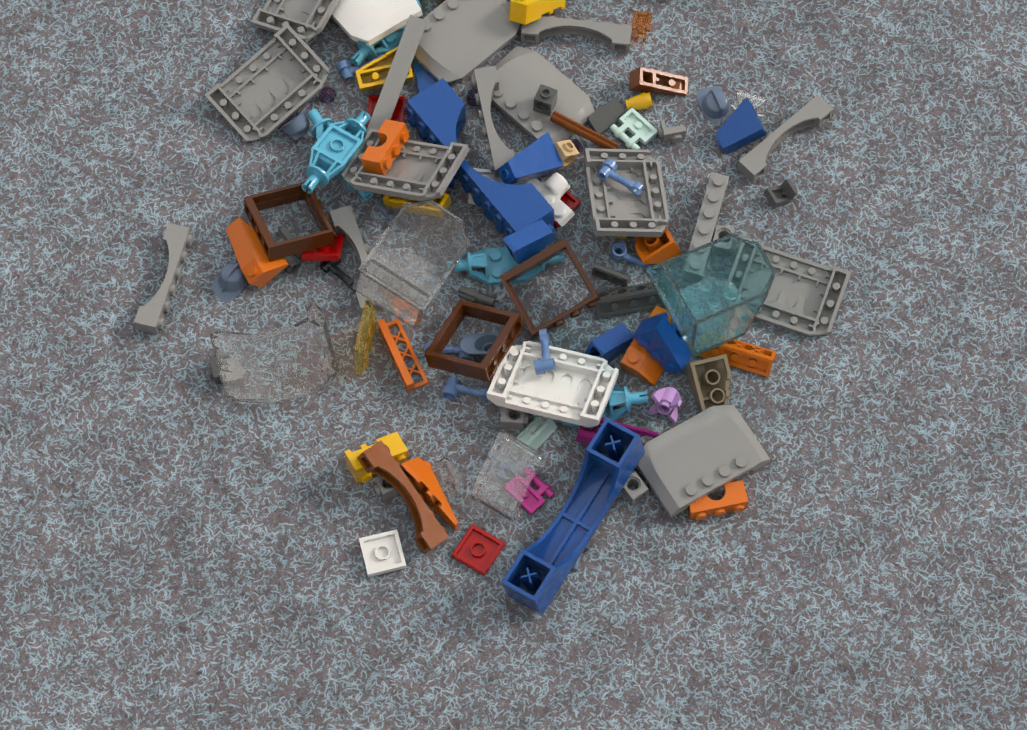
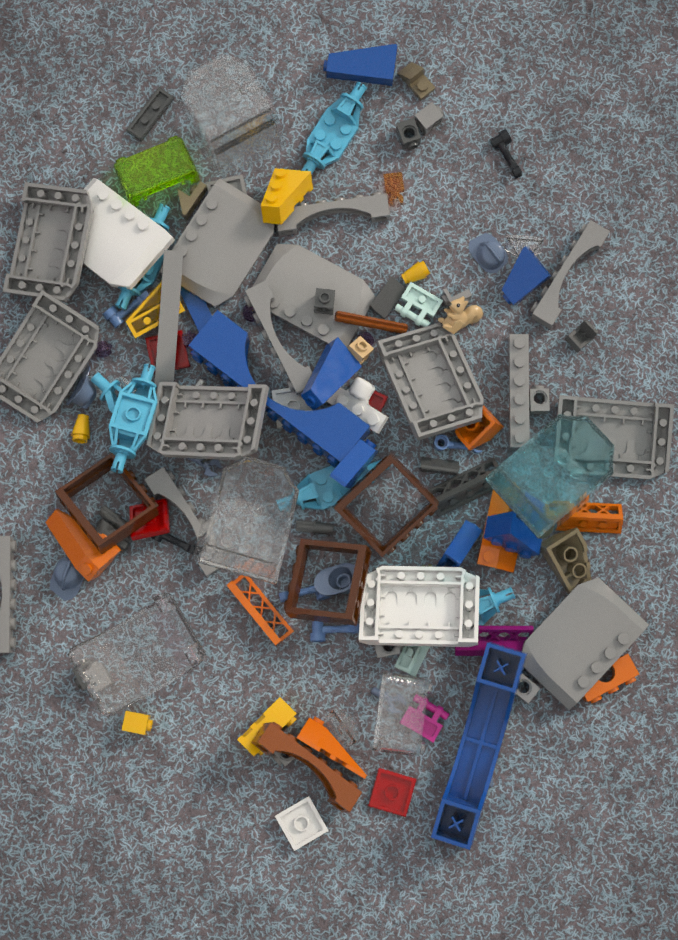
camera: 15 degrees left, 15 degrees up
(254, 422) = (137, 723): none -> yellow brick
(284, 158) = (81, 431): none -> yellow cone
(364, 338) = (221, 609): clear yellow plate -> none
(380, 158) = (181, 419): orange arch -> none
(544, 364) = (406, 590): medium blue brick -> none
(608, 170) = (407, 361): medium blue brick -> none
(657, 82) = (428, 247): dark orange slope -> none
(666, 403) = (532, 590): lavender brick -> none
(668, 150) = (458, 317): none -> tan animal
(755, 10) = (500, 141): none -> black brick

